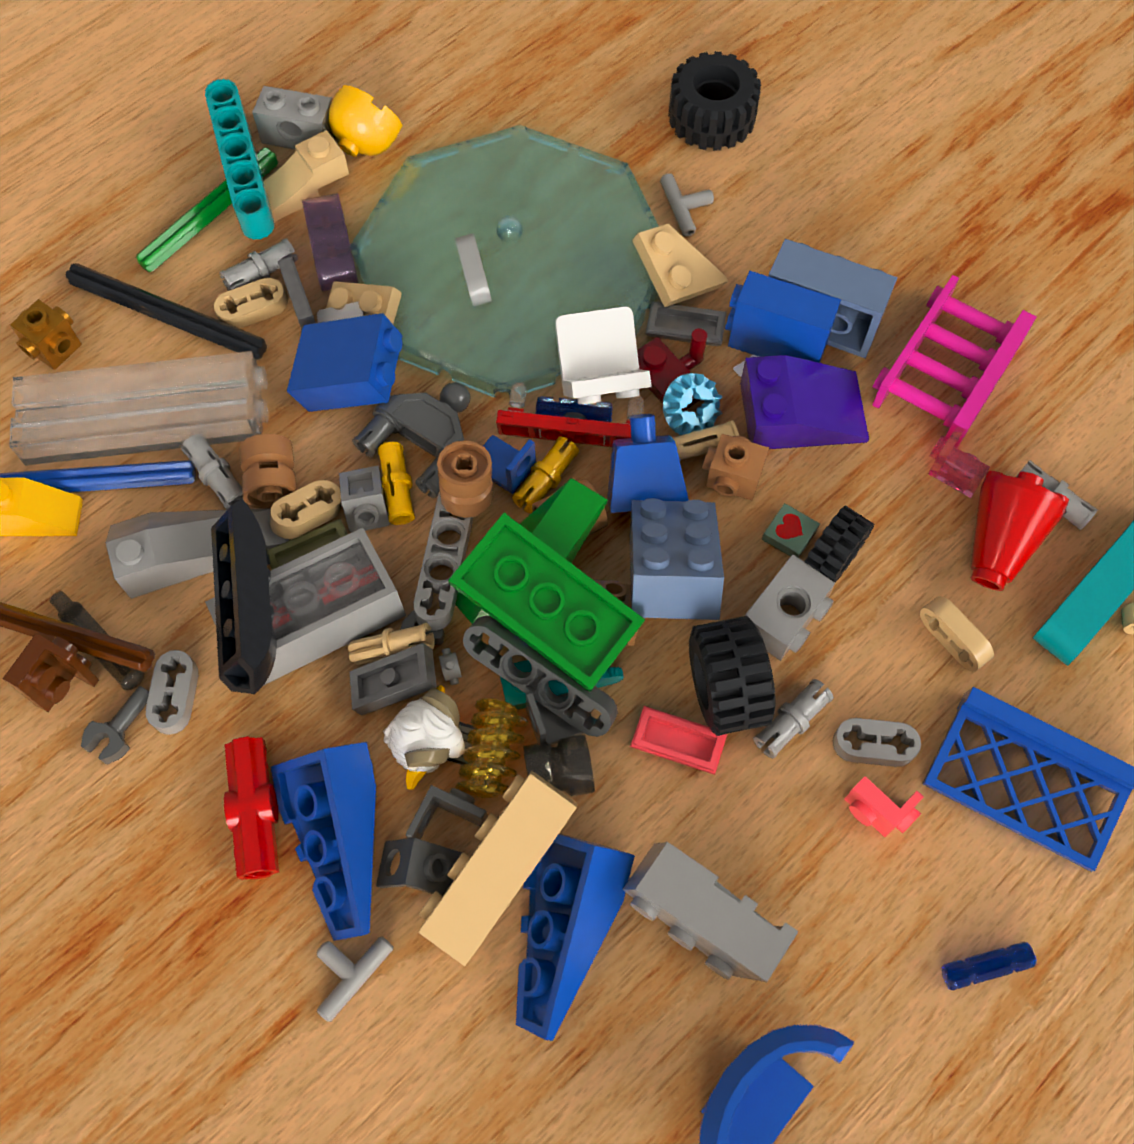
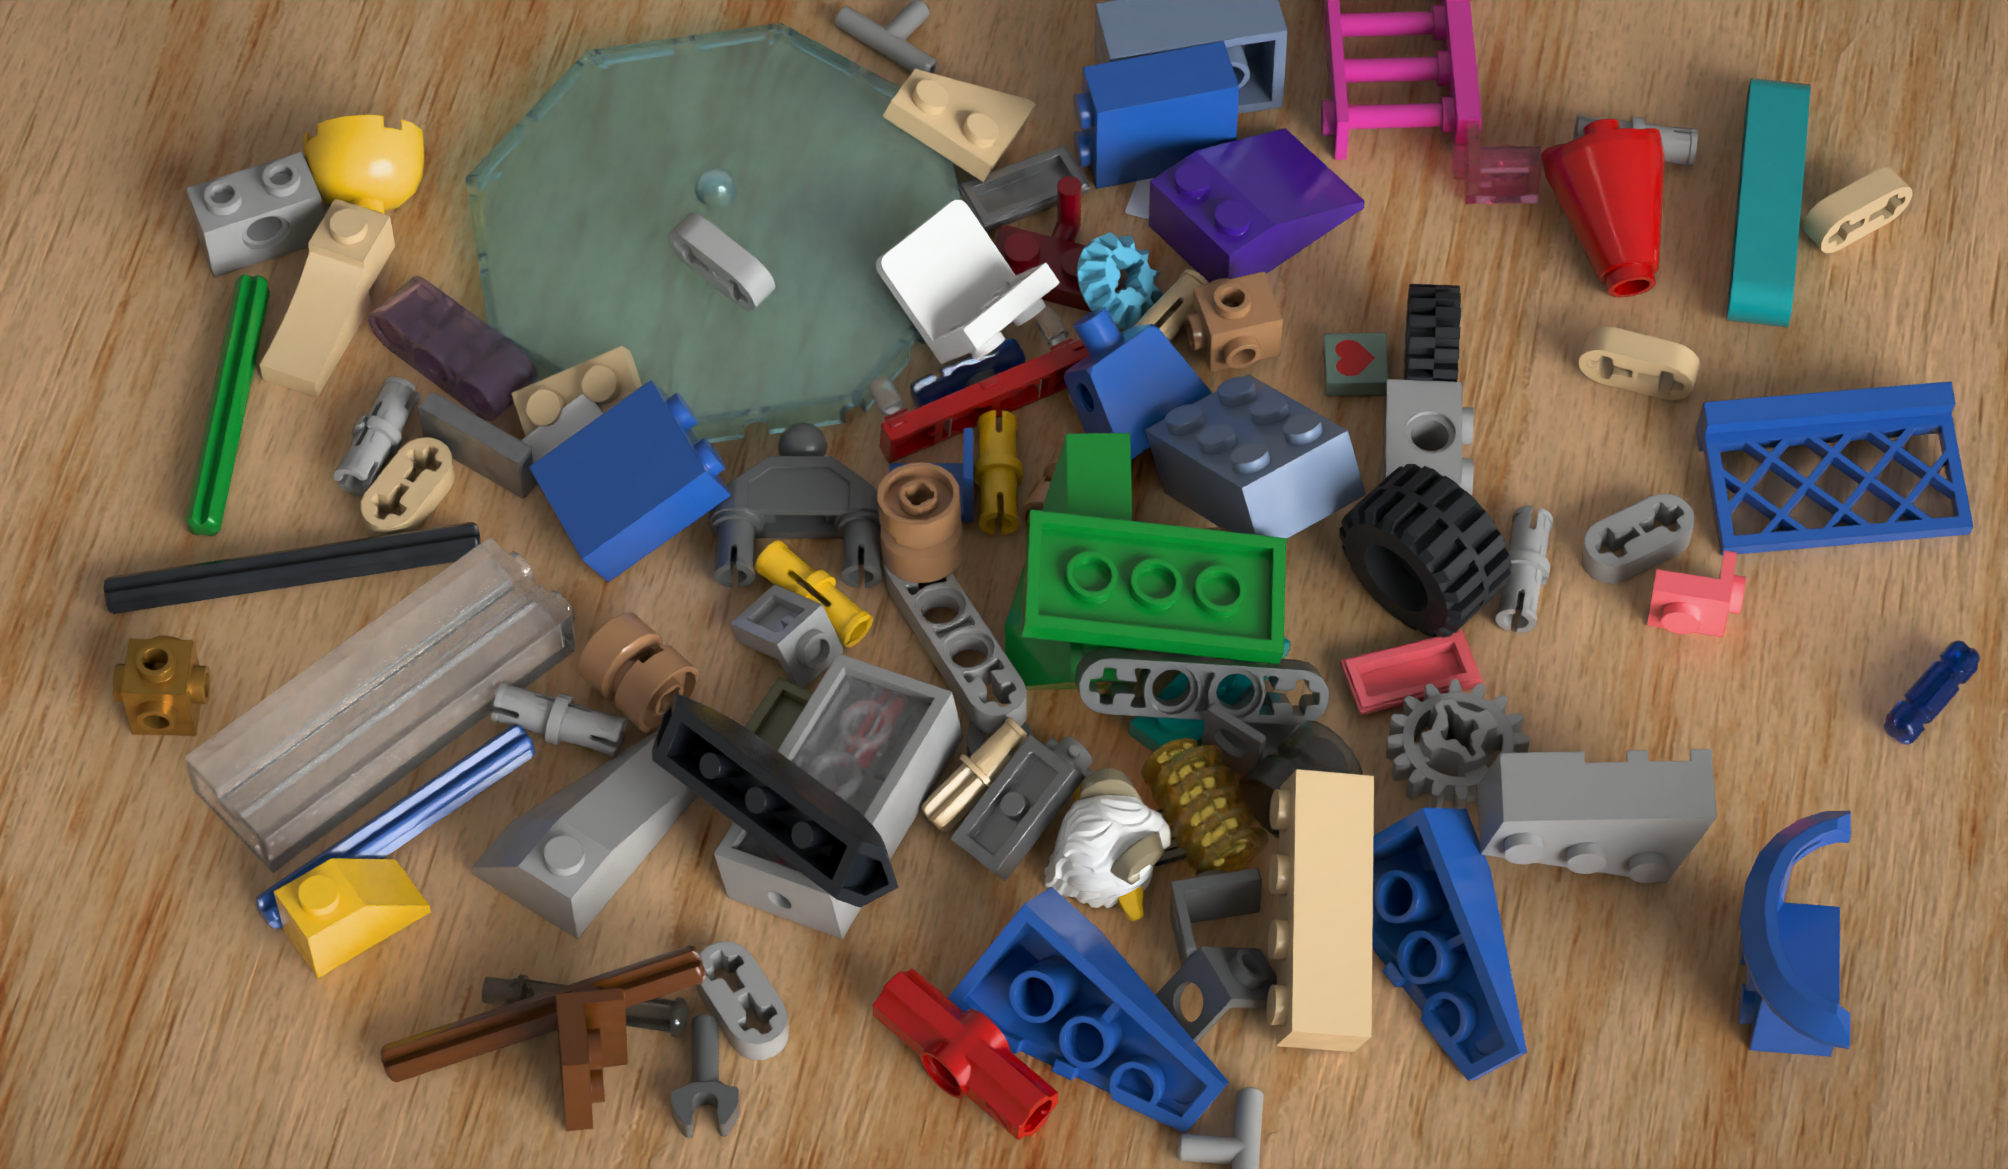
camera: 35 degrees left, 10 degrees down
(239, 159) = (238, 304): teal beam -> none
(304, 506) = (739, 691): tan beam -> none
(649, 804) = (1458, 745): none -> light grey gear

